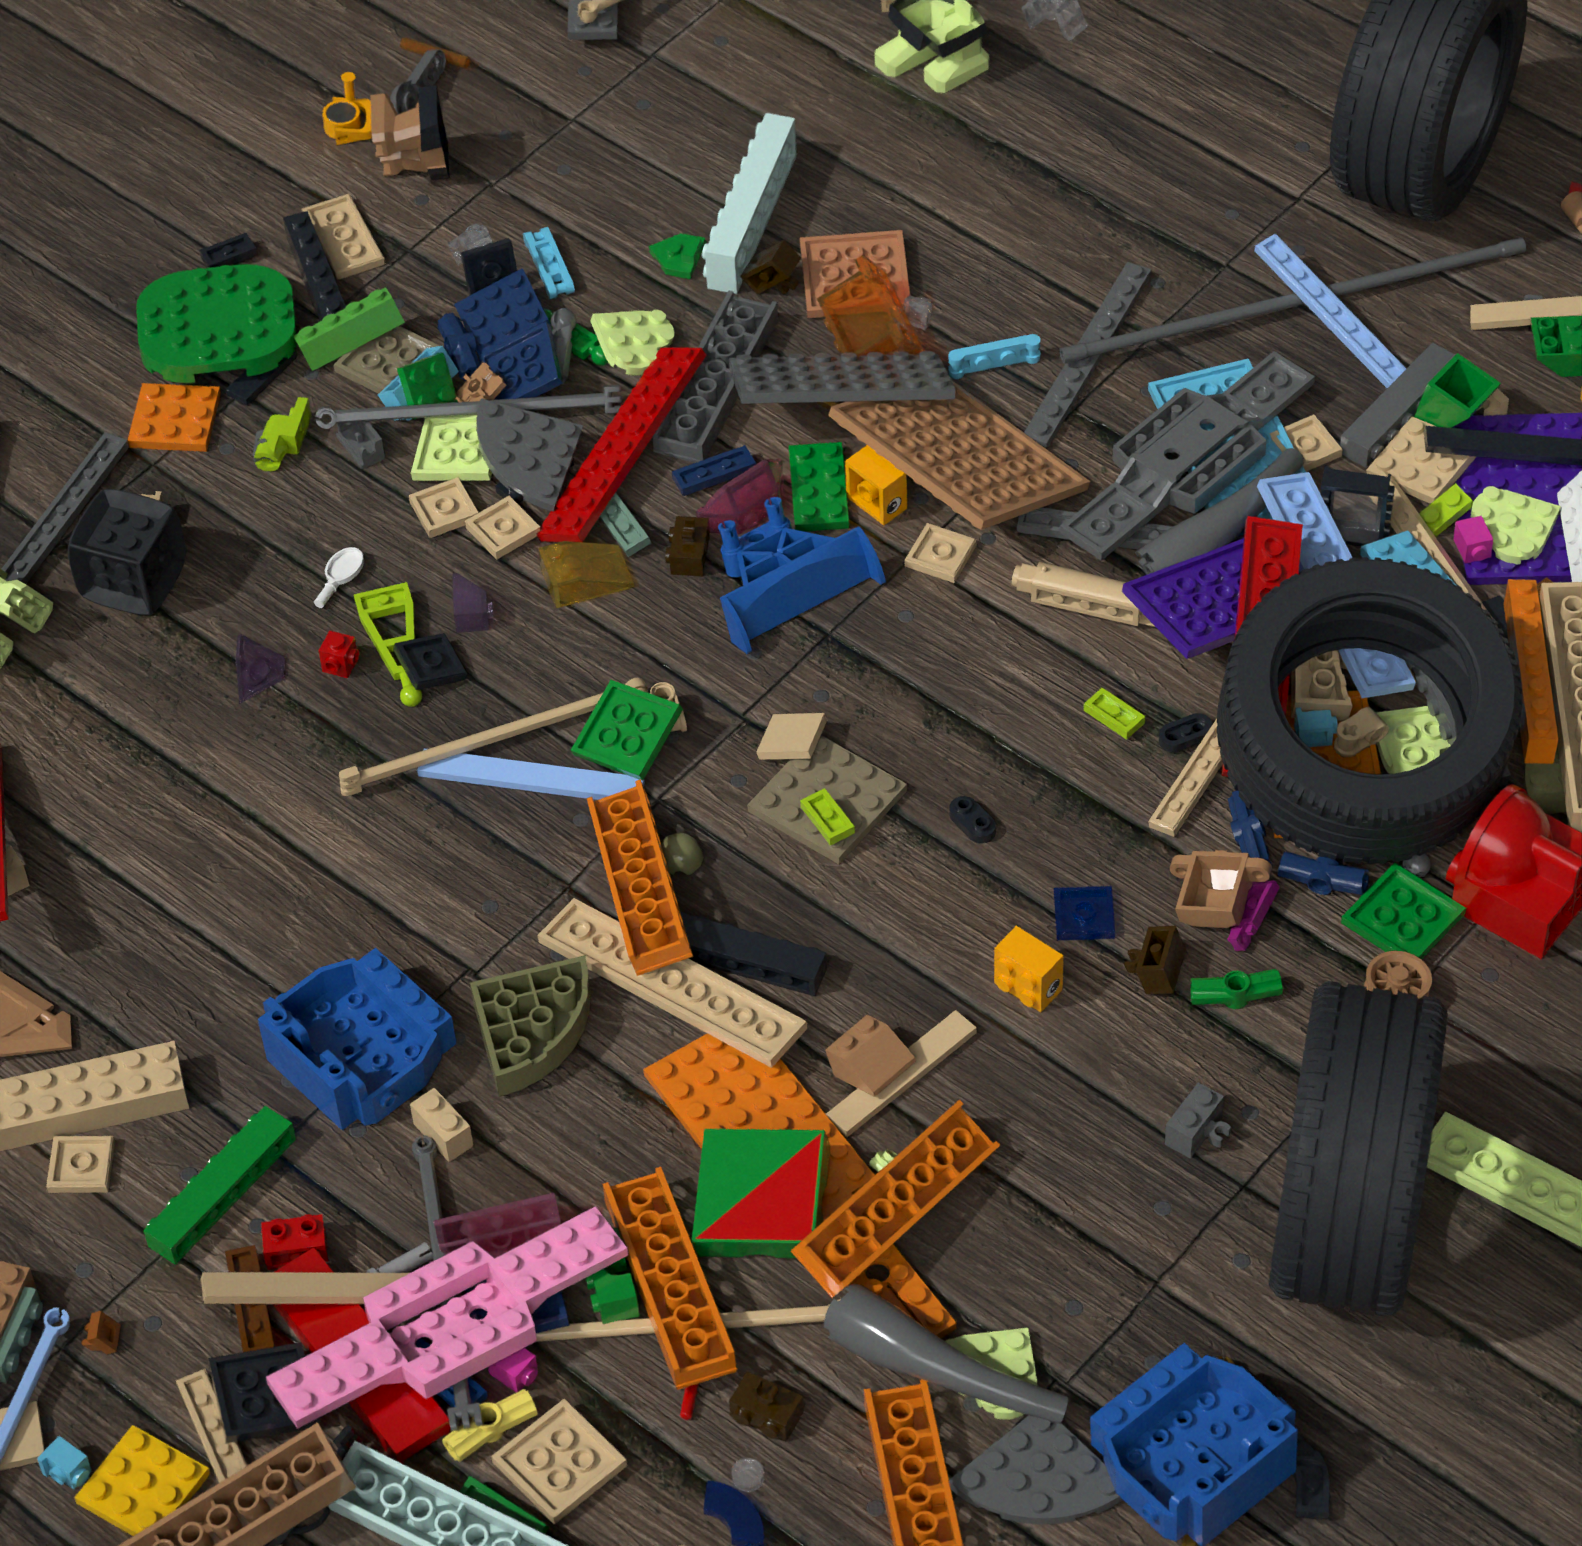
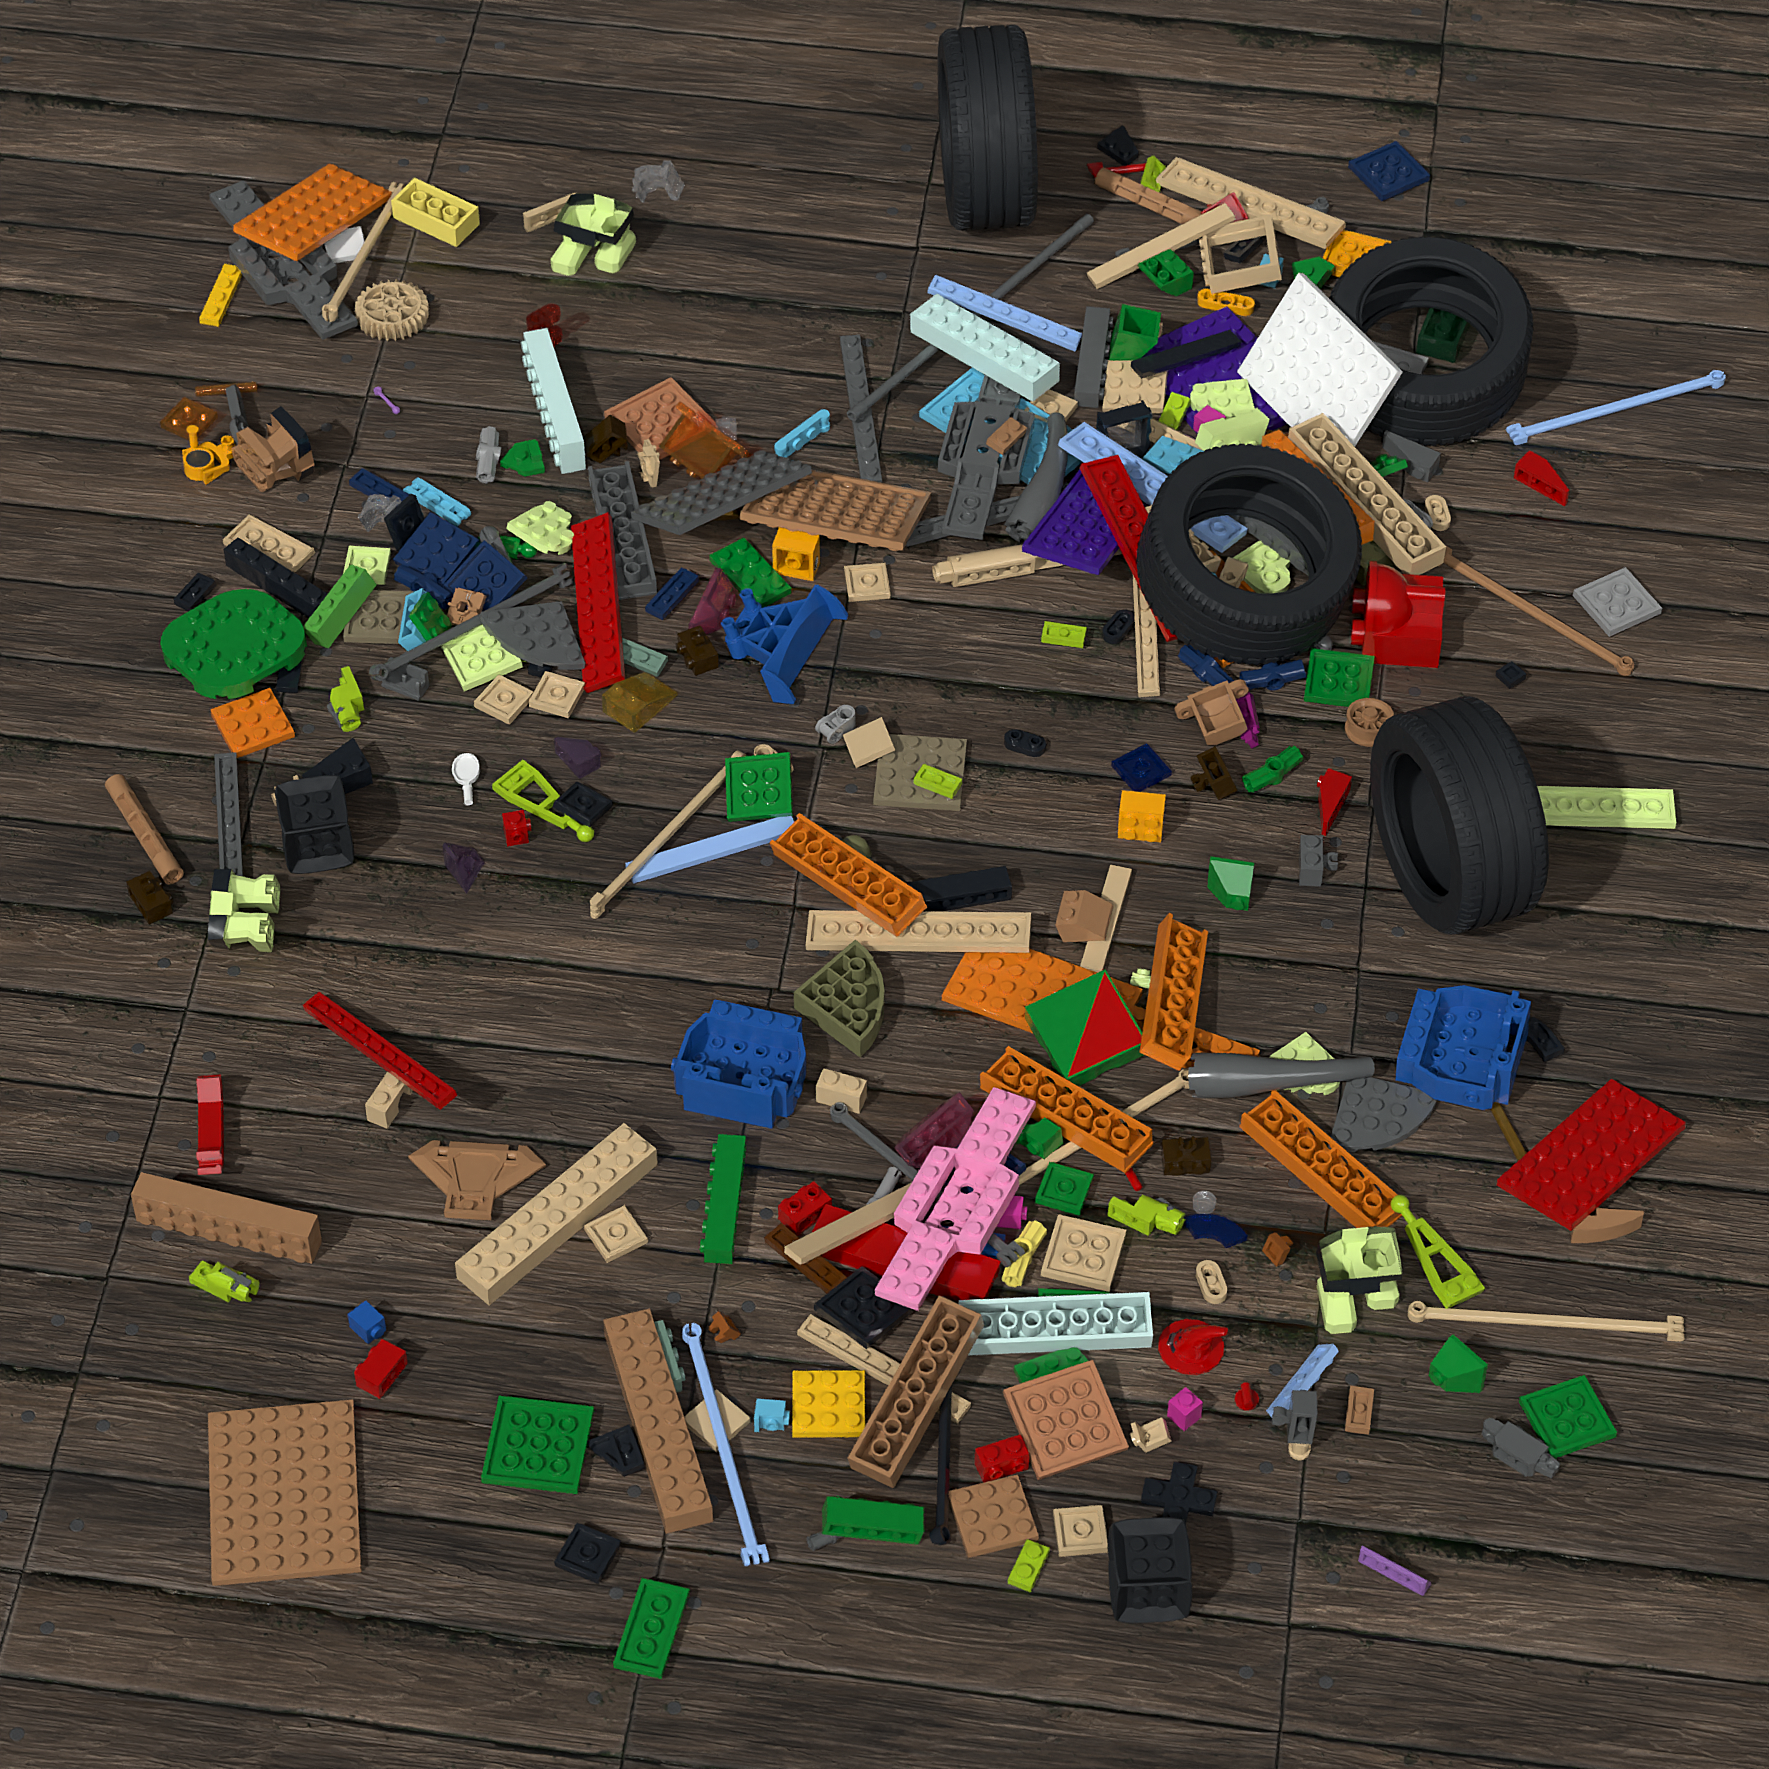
camera: 35 degrees left, 0 degrees up
(212, 508) = (348, 764): none -> black wedge
(372, 68) = (186, 414): none -> clear orange plate
(423, 298) = (372, 559): none -> yellowish green plate
(499, 220) = (372, 484): none -> dark blue plate
(587, 119) = (378, 391): none -> medium lavender hinge
(598, 1371) = (1064, 1188): none -> green plate
(640, 233) = (487, 454): none -> light grey piece
(666, 37) = (391, 310): none -> tan gear
(669, 1455) = (1147, 1214): none -> lime plate
(776, 698) = (837, 723): none -> light grey piece
(792, 107) = (545, 318): none -> clear red connector
(798, 314) = (649, 463): none -> tan piece
(1076, 1102) = (1231, 882): none -> slope
(1208, 450) = (1006, 436): none -> medium nougat plate
(1267, 340) = (985, 347): none -> light aqua brick
(1277, 1058) = (1332, 794): none -> red slope
(1485, 564) = (1239, 429): none -> yellowish green wedge

